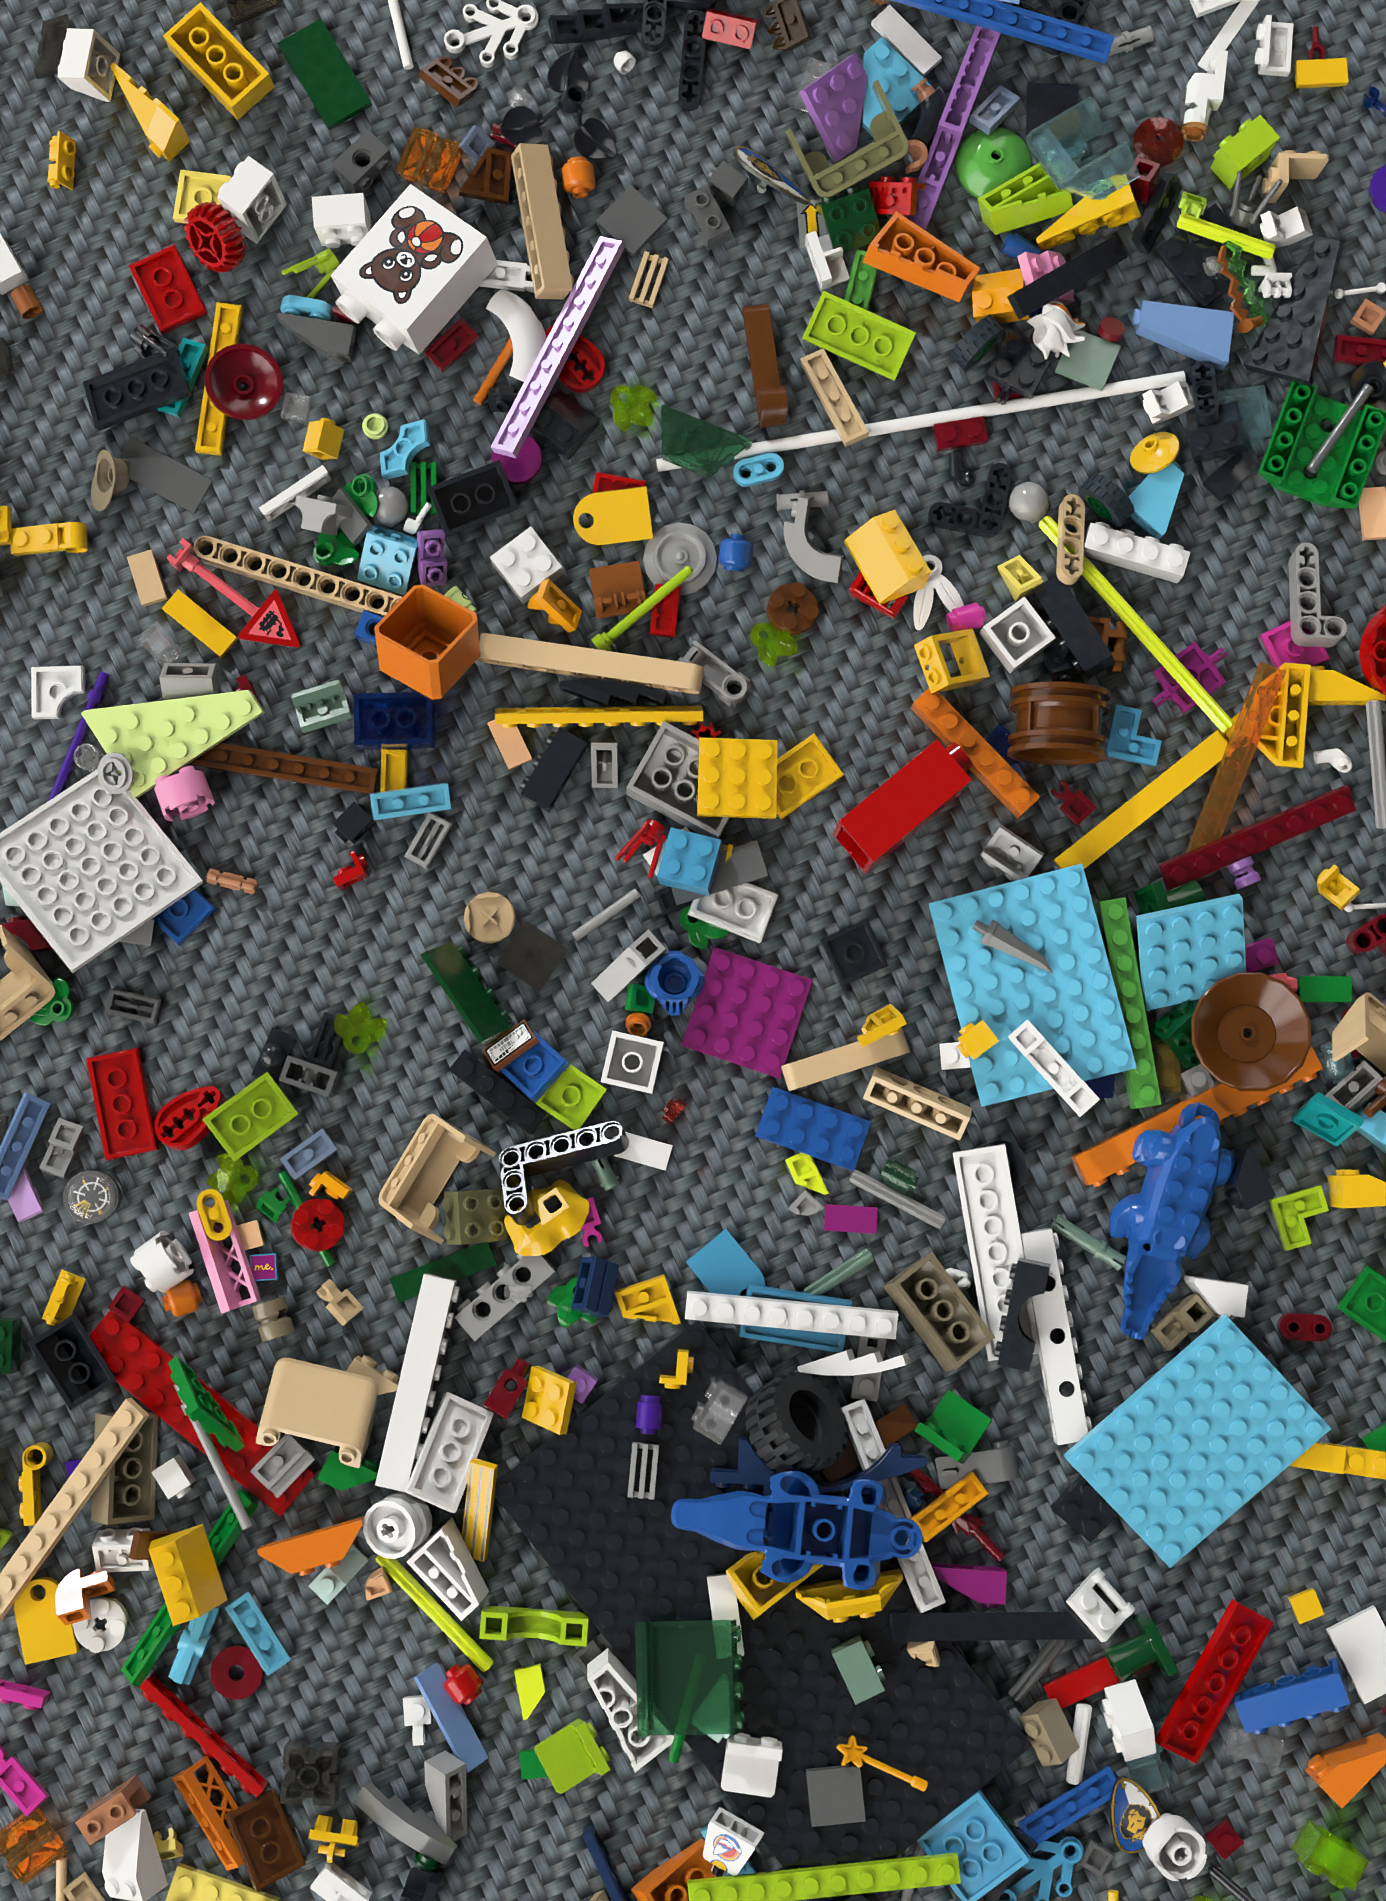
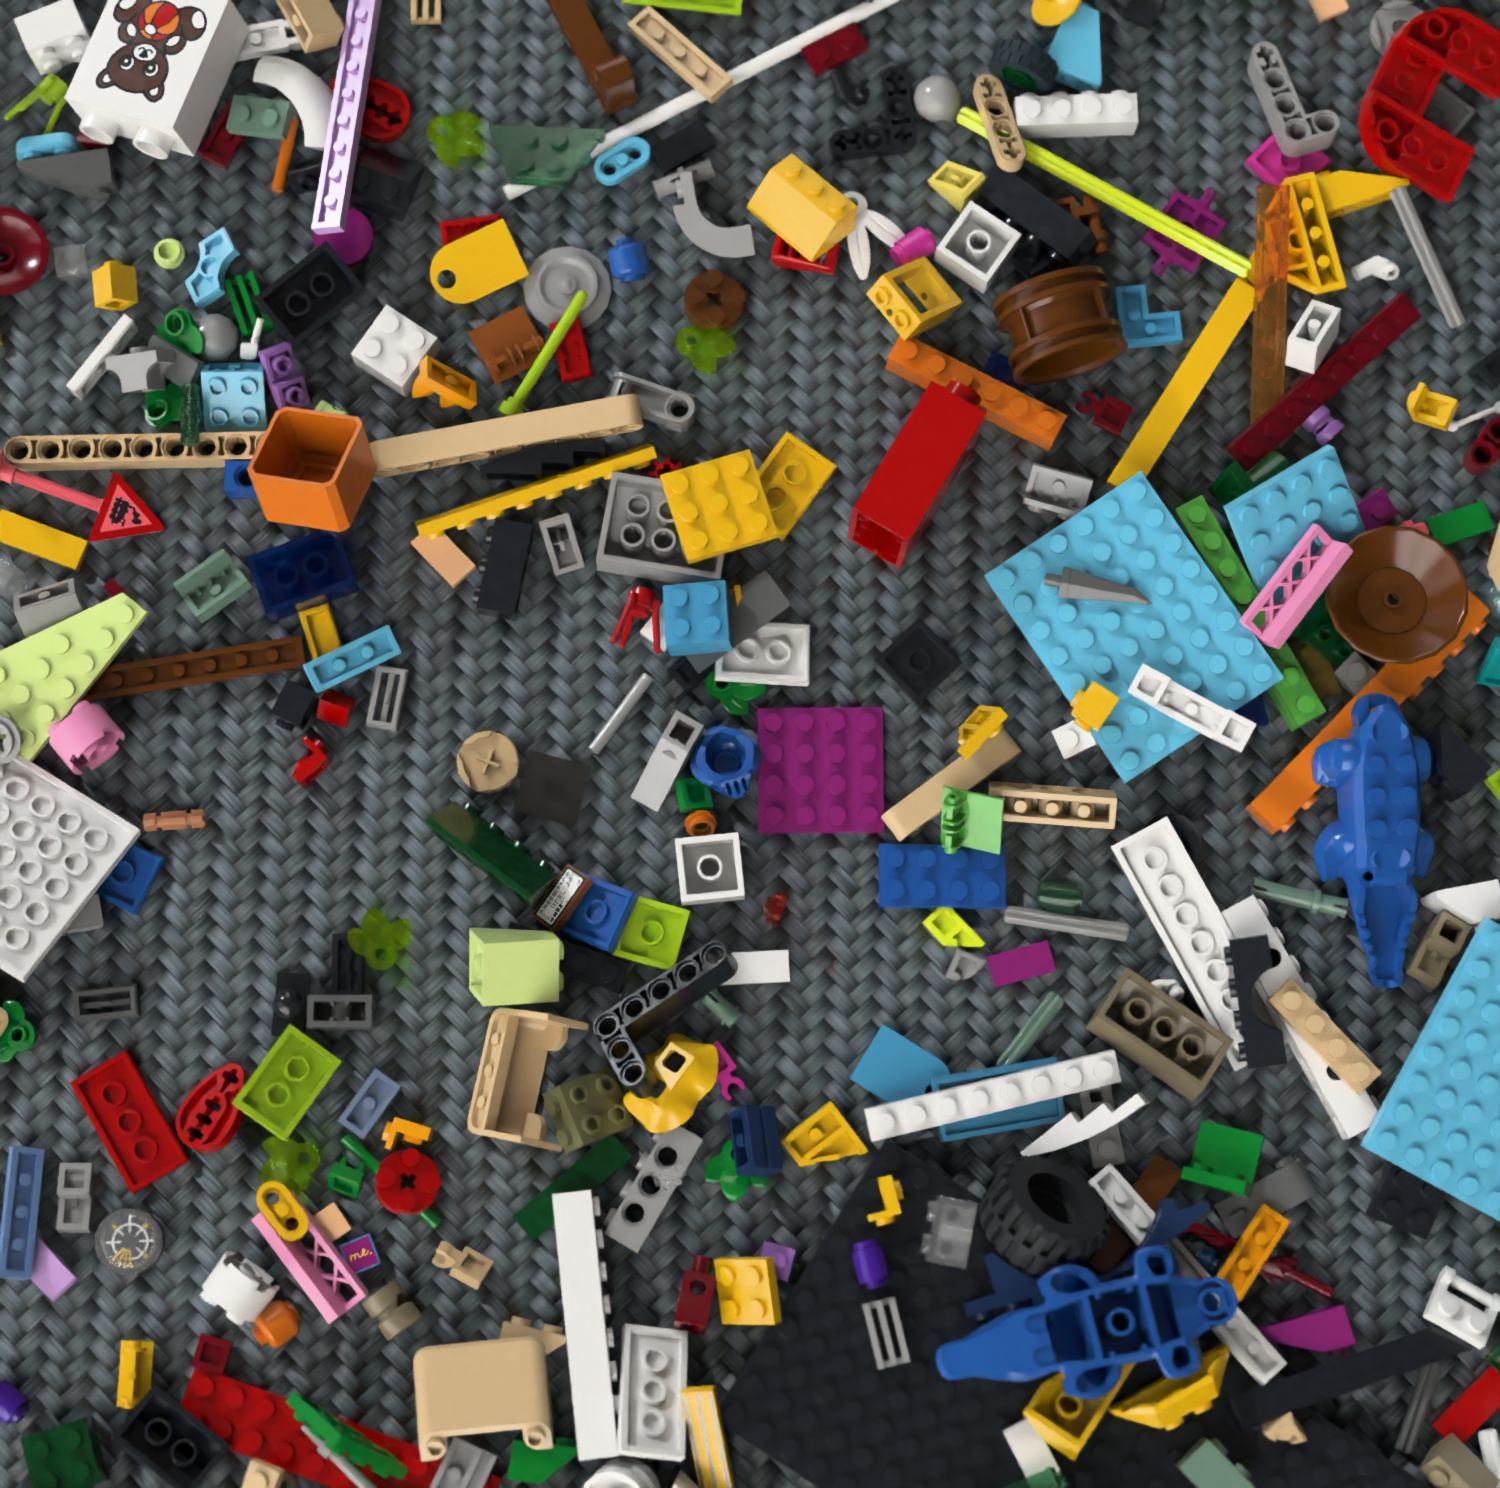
camera: 25 degrees left, 5 degrees down
(347, 564) = (190, 414): none -> clear green pin
(386, 834) = (335, 708): none -> red slope
(455, 1087) = (514, 966): none -> yellowish green slope
(482, 339) = (261, 116): none -> sand green bracket
(810, 473) = (682, 147): none -> black tile
(849, 1095) = (971, 821): none -> hinge
(1066, 1359) = (1323, 1037): none -> tan plate
(1173, 1003) = (1297, 593): none -> bright pink fence
(1261, 799) = (1312, 336): none -> white brick

